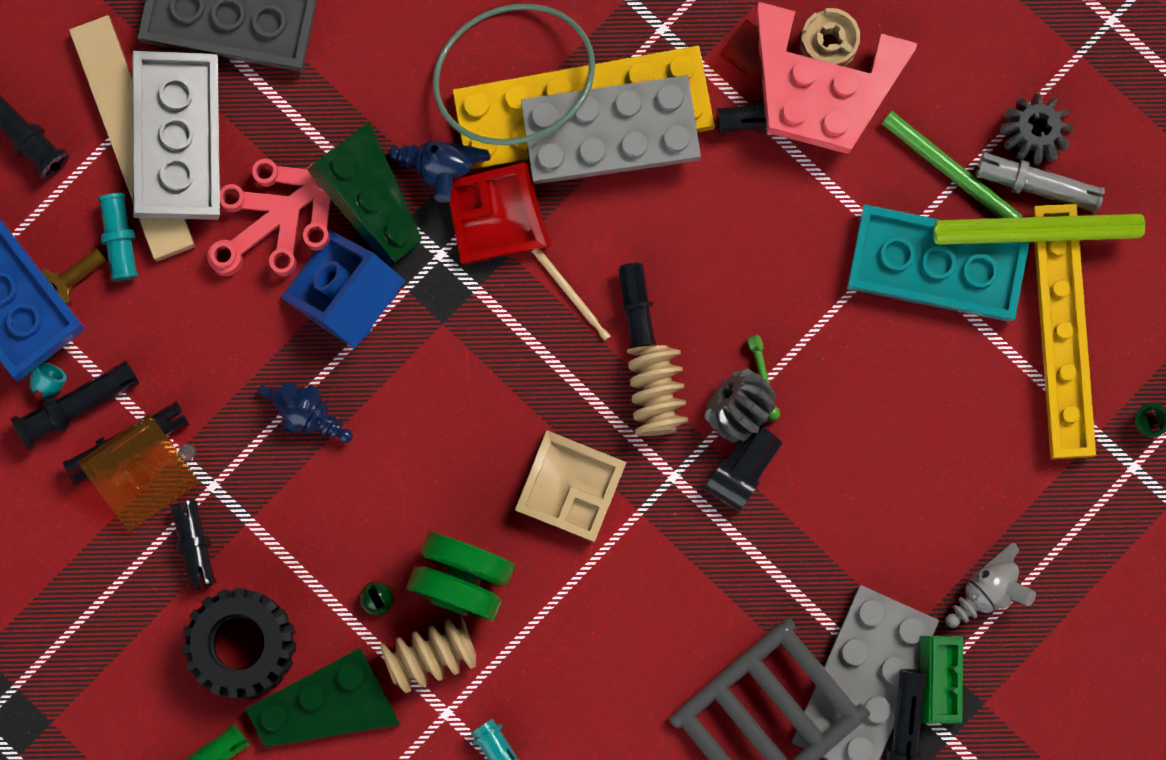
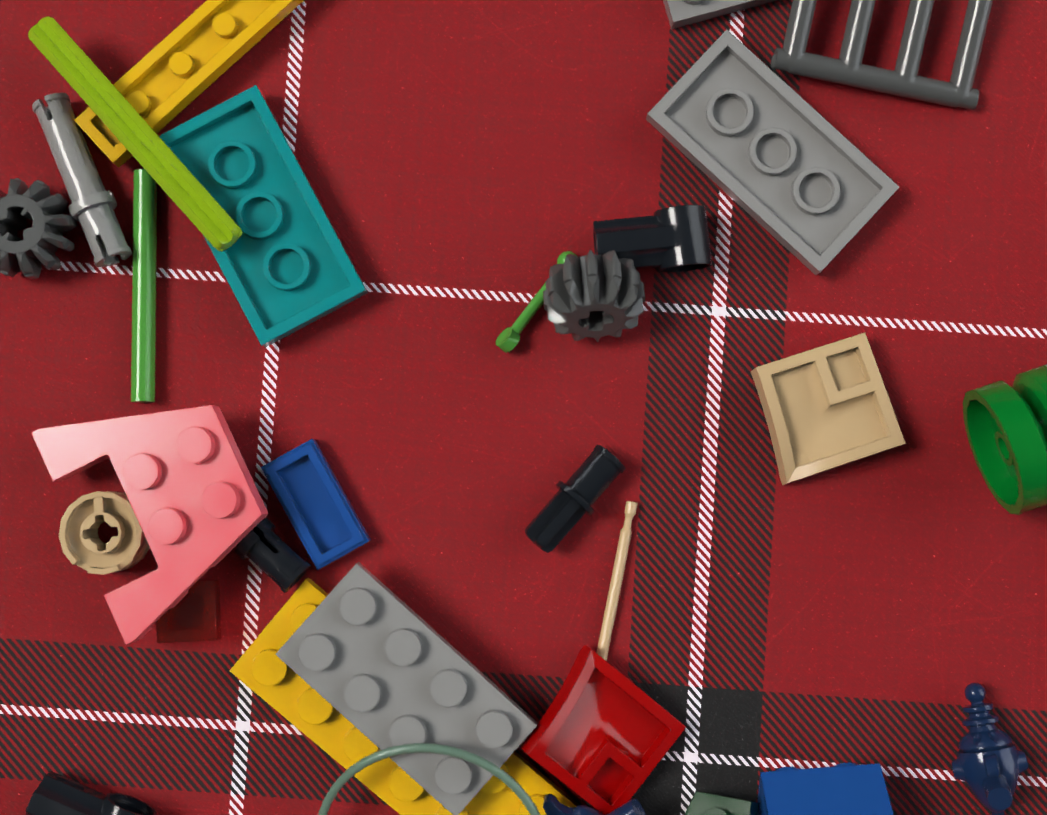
camera: 130 degrees left, 5 degrees up
(656, 390) = (648, 398): tan piece -> none
(739, 577) = (771, 152): none -> light grey plate
(751, 165) = (315, 504): none -> blue tile

